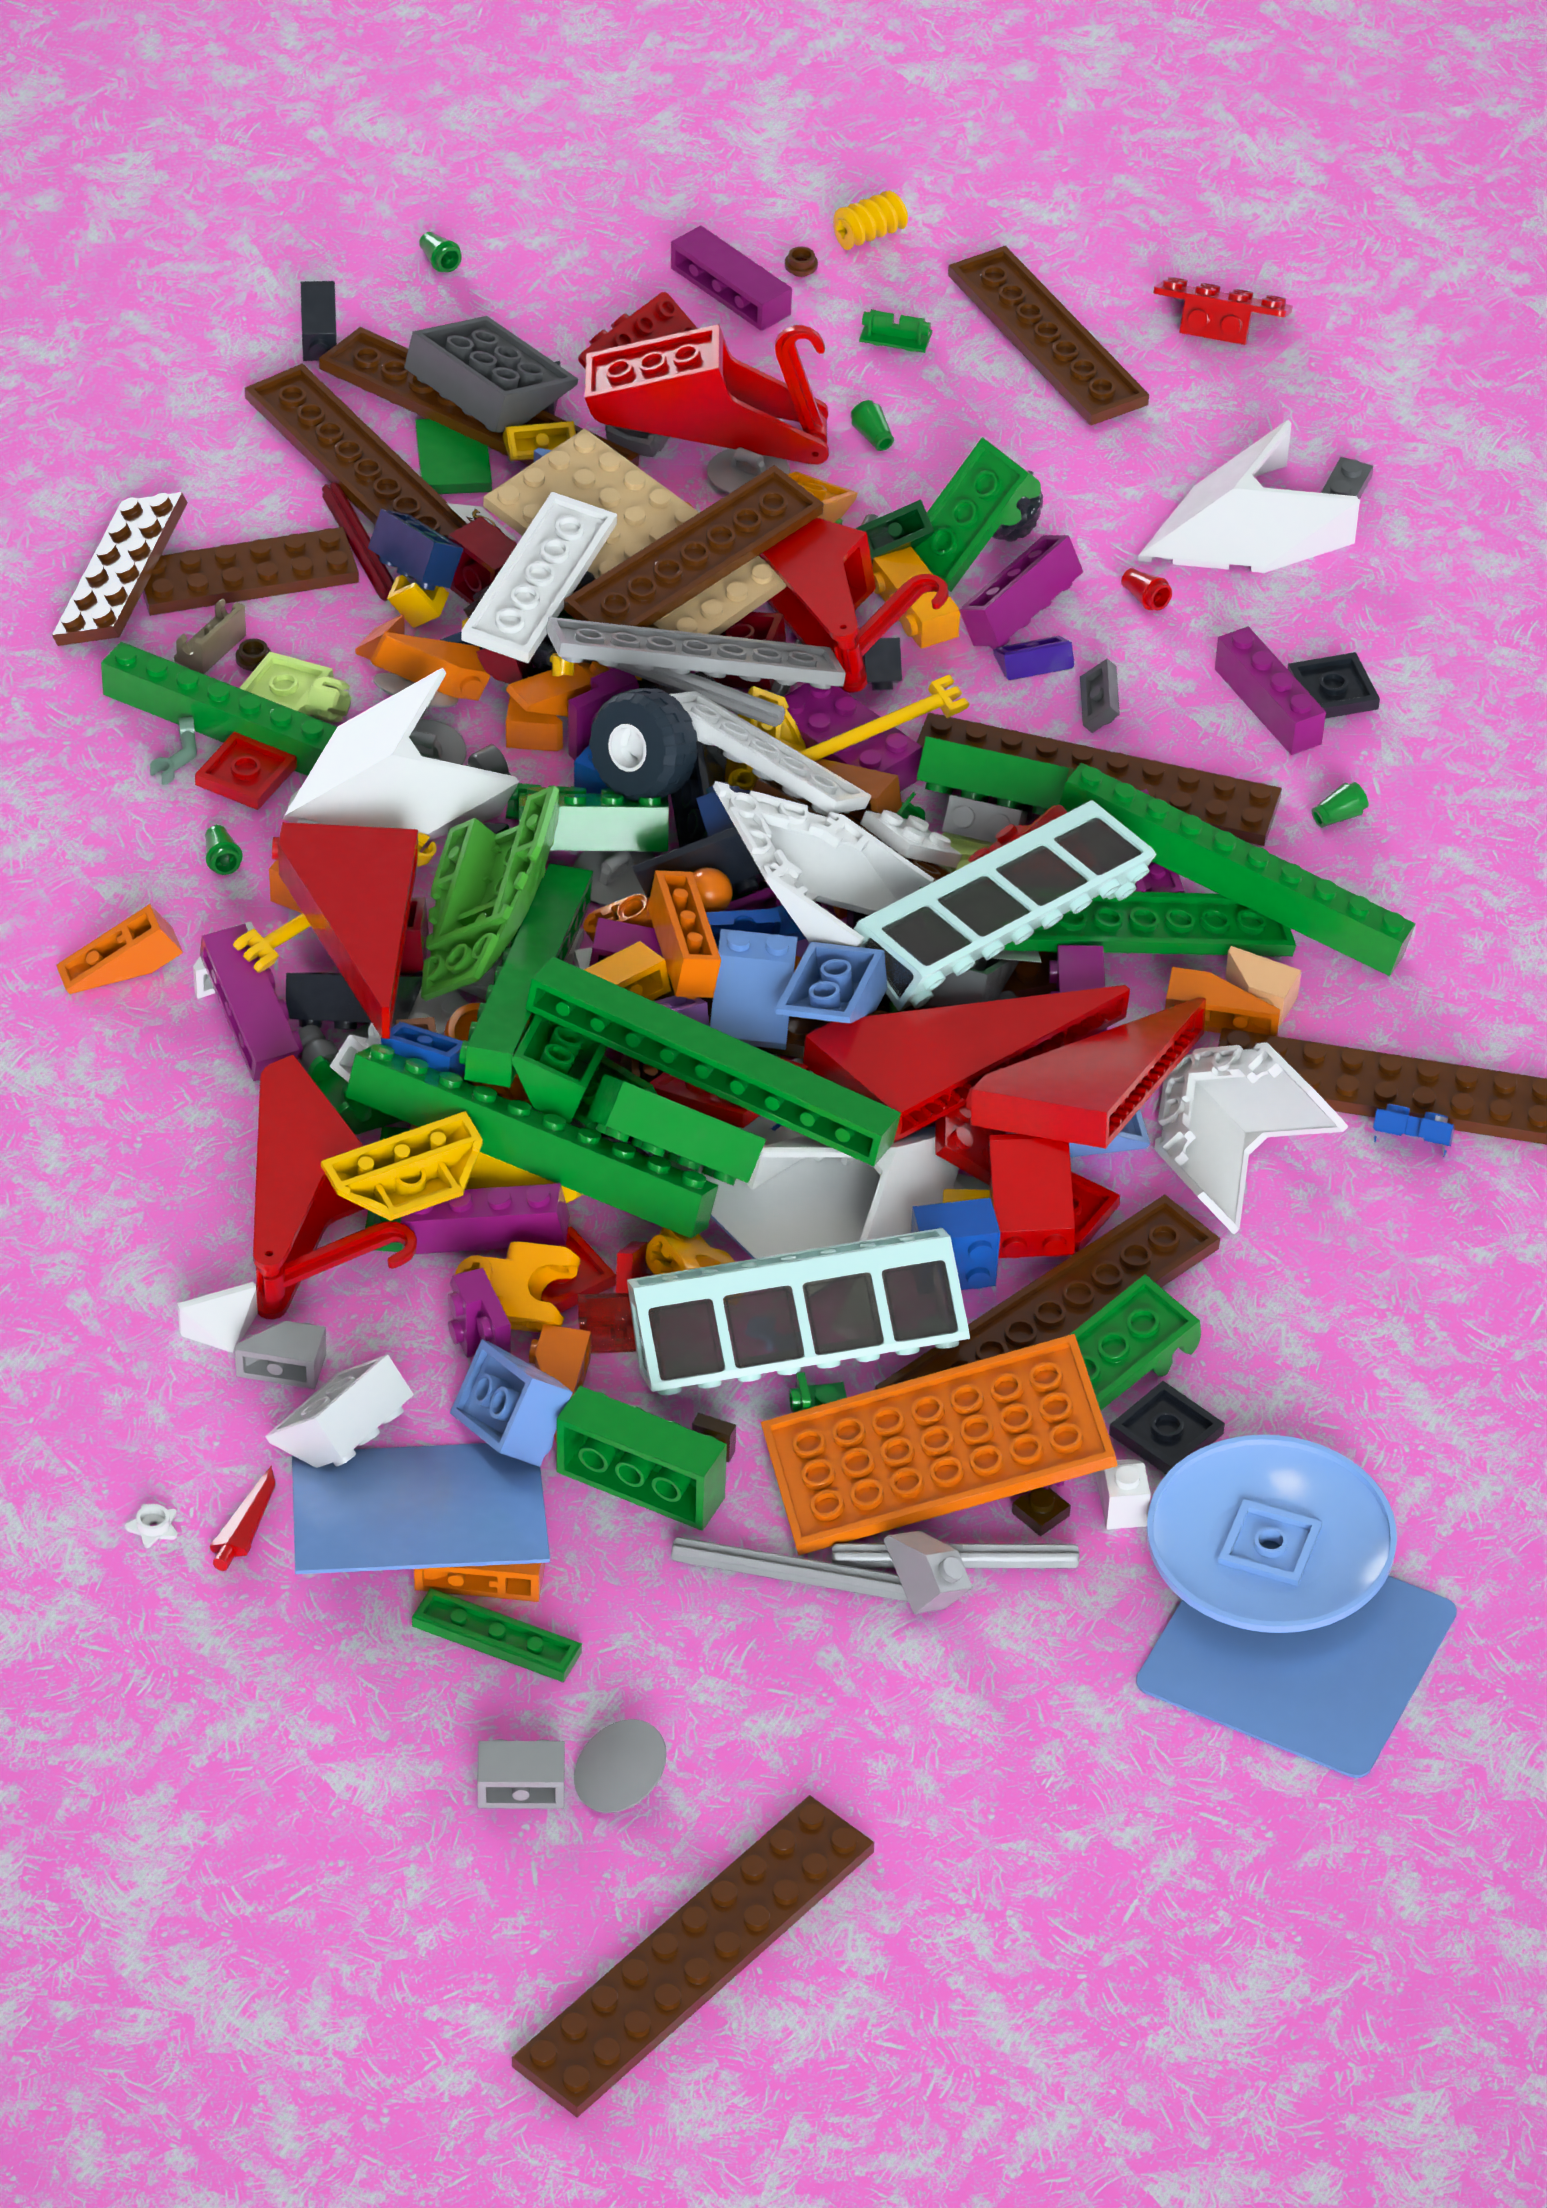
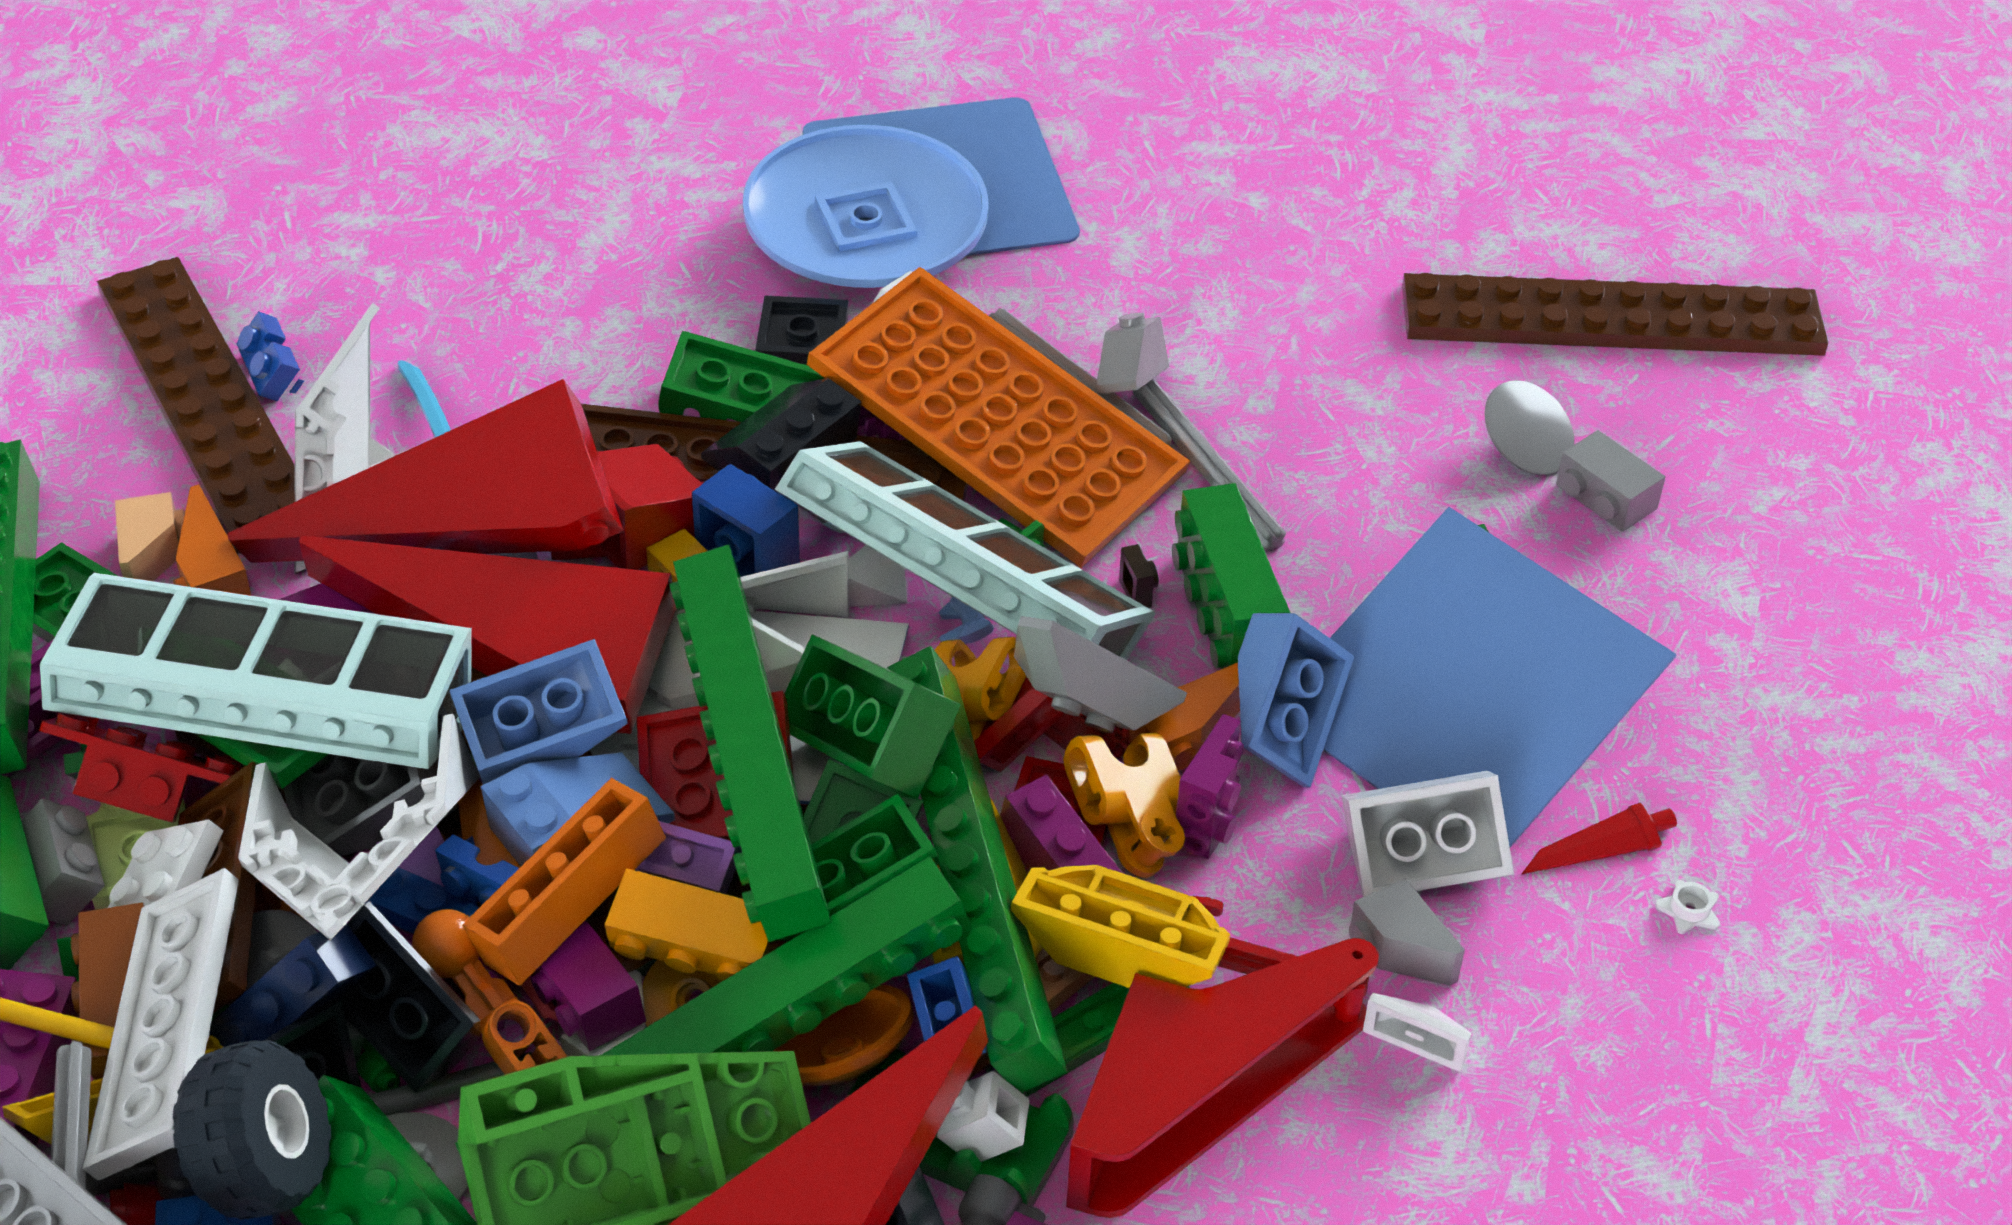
camera: 130 degrees left, 0 degrees up
(613, 1245) = (1090, 678): none -> light grey wedge
(1025, 1300) = (796, 419): none -> black slope
(1216, 1167) = (425, 398): none -> medium azure sword

